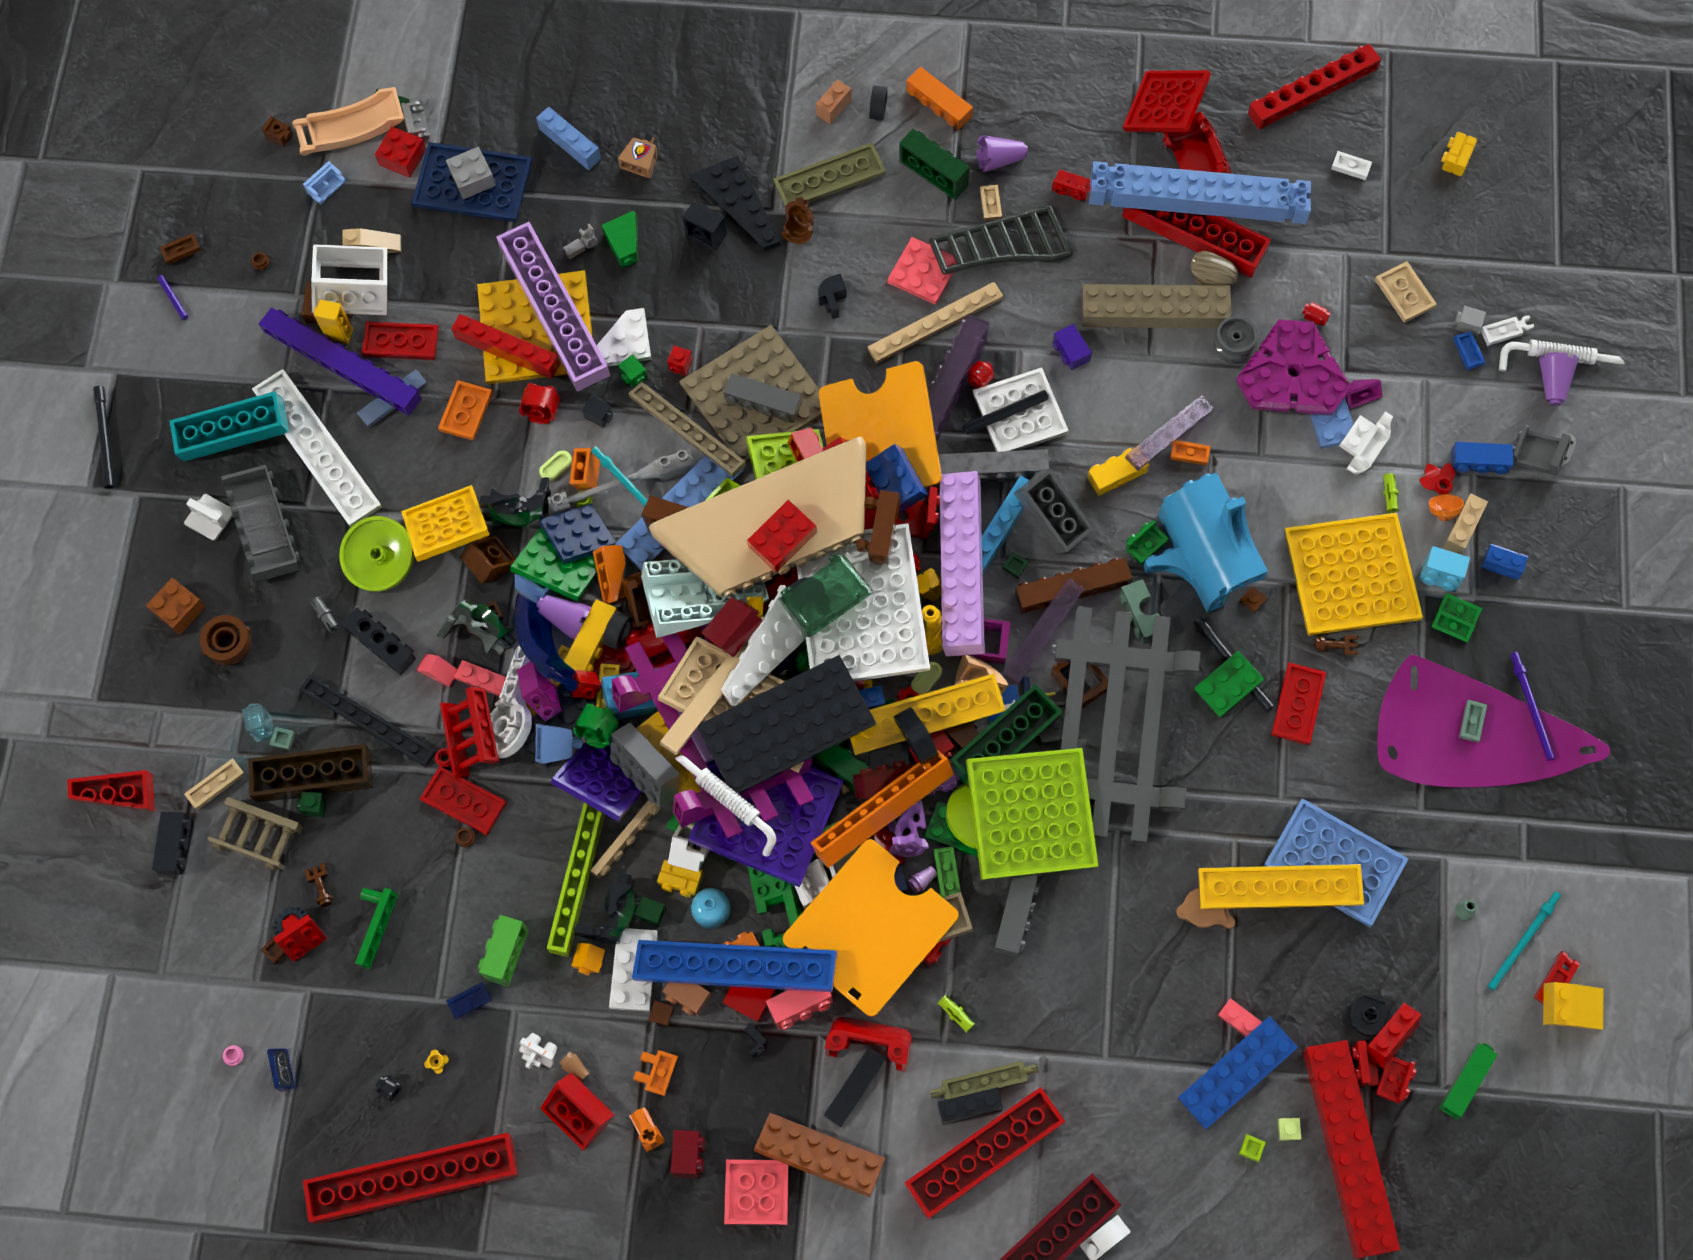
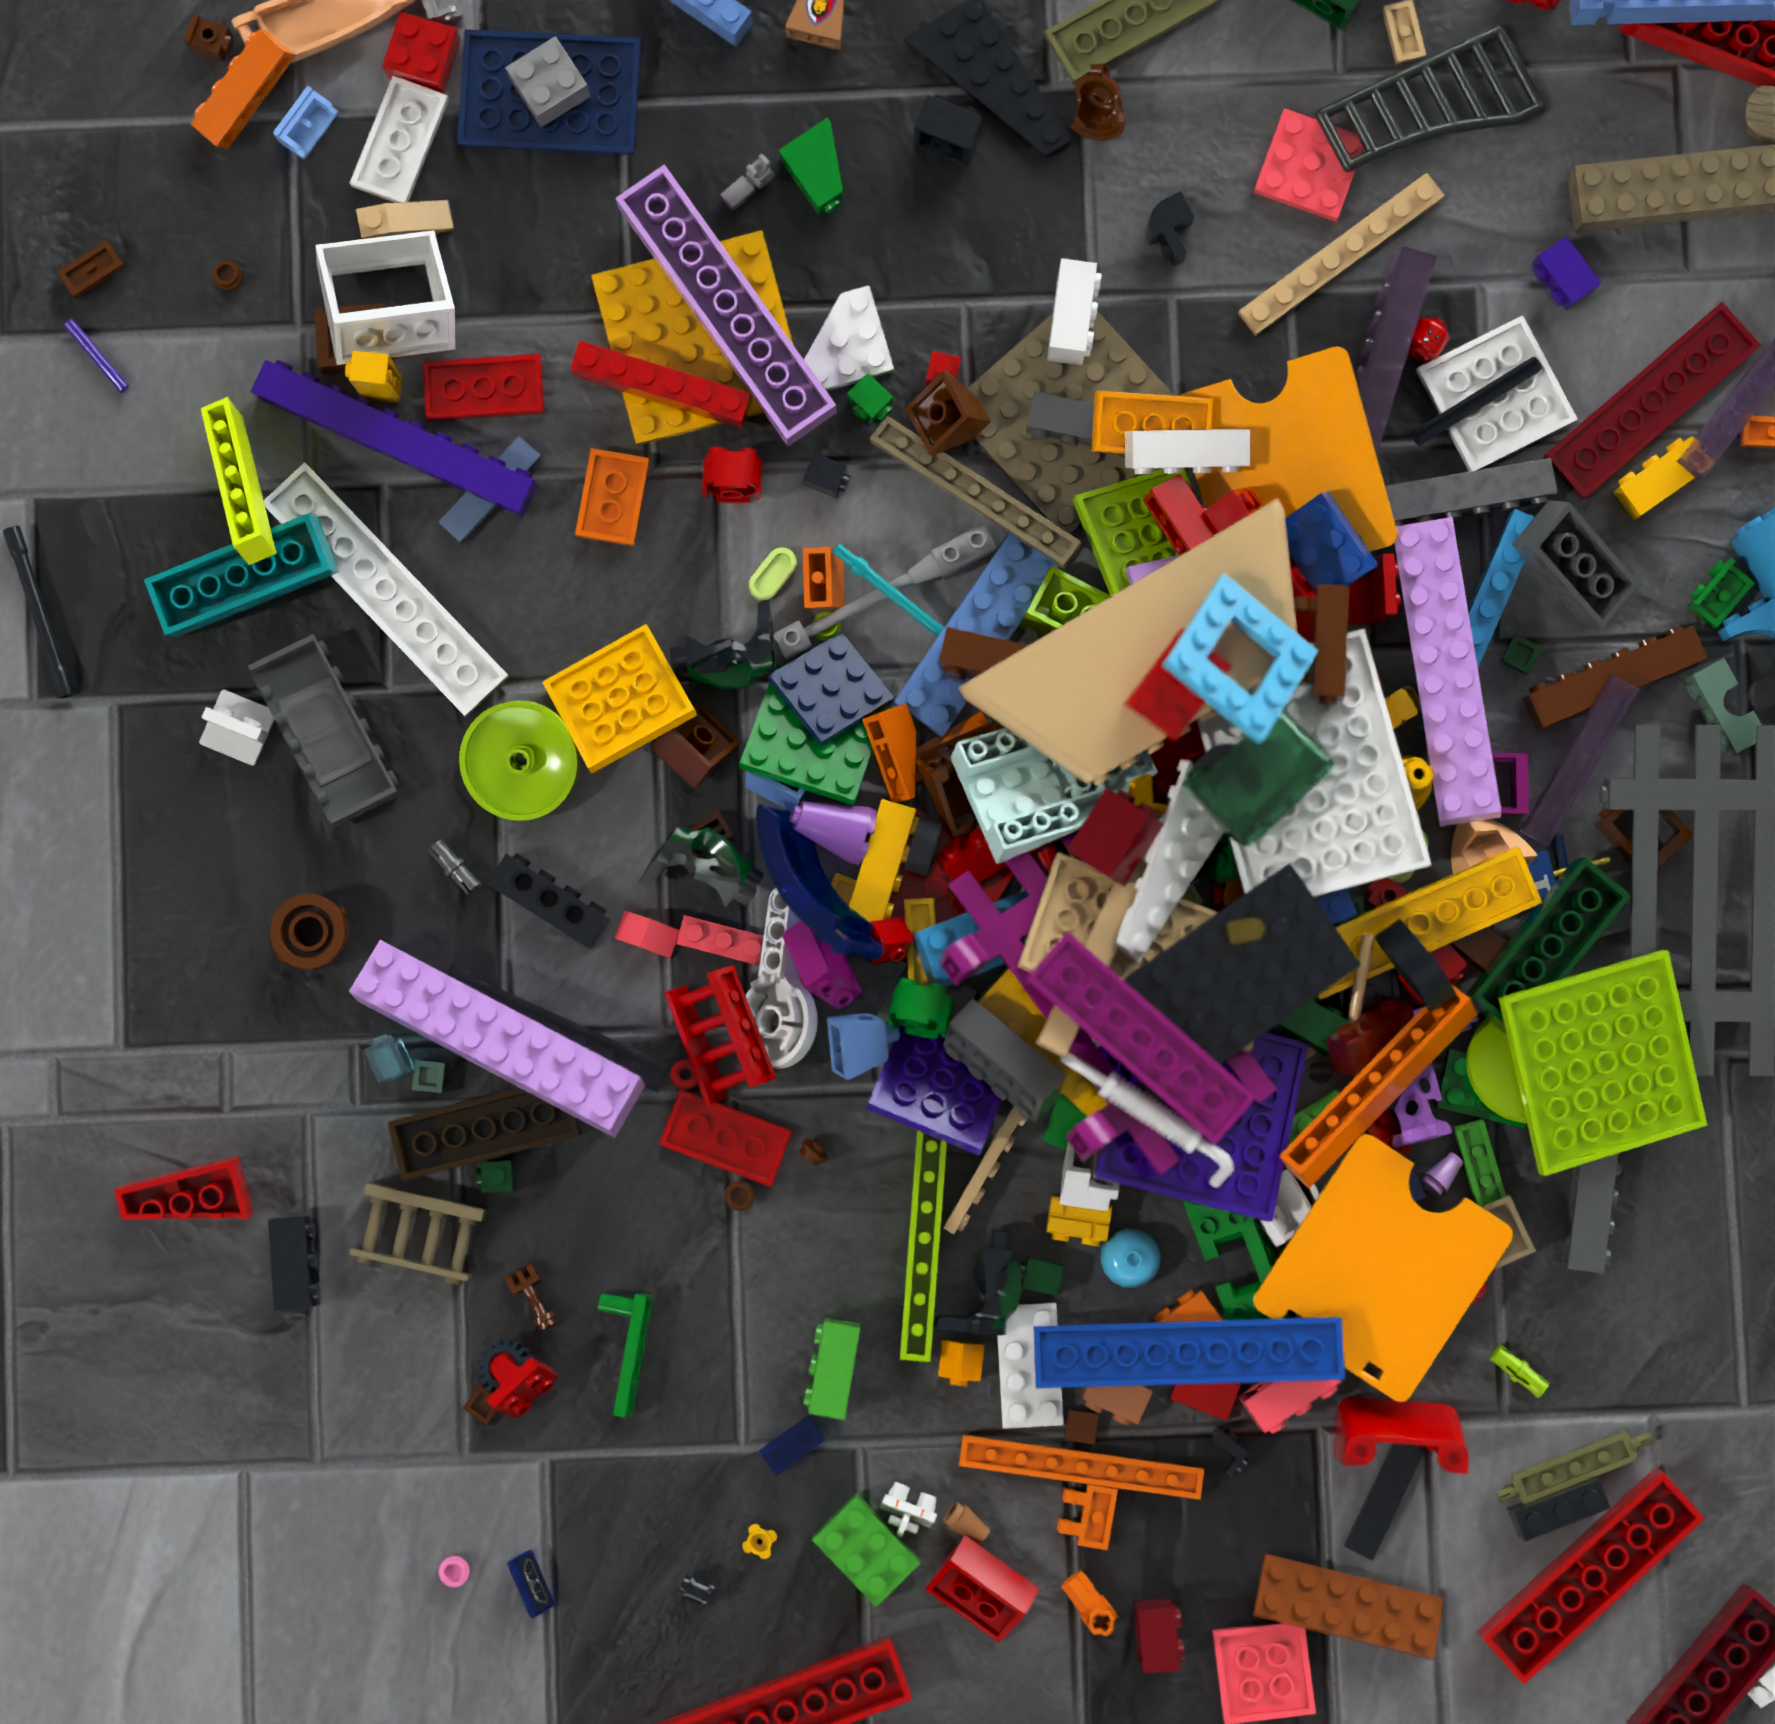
camera: 10 degrees left, 15 degrees up
(175, 606) = (217, 884): dark orange brick -> none
(214, 784) = (339, 1161): tan plate -> none
(237, 369) = (238, 481): none -> neon yellow brick
(290, 158) = (242, 88): none -> orange brick
(328, 715) = (497, 1038): none -> lavender brick
(378, 198) = (399, 140): none -> white plate
(504, 1074) = (866, 1549): none -> bright green brick
(517, 814) = (814, 1151): none -> reddish brown plate
(656, 1039) = (1081, 1466): none -> orange plate
(677, 382) = (947, 414): none -> reddish brown slope
(726, 747) = (1140, 1037): none -> magenta plate
(762, 331) = (1074, 312): none -> white brick
(799, 399) = (1144, 412): none -> light orange tile
(804, 690) = (1245, 930): none -> clear yellow piece
(818, 413) = (1187, 449): none -> white brick
(820, 489) = (1188, 660): none -> medium azure plate
(882, 741) = (1361, 977): none -> tan bar
(1117, 426) = (1652, 401): none -> dark red plate

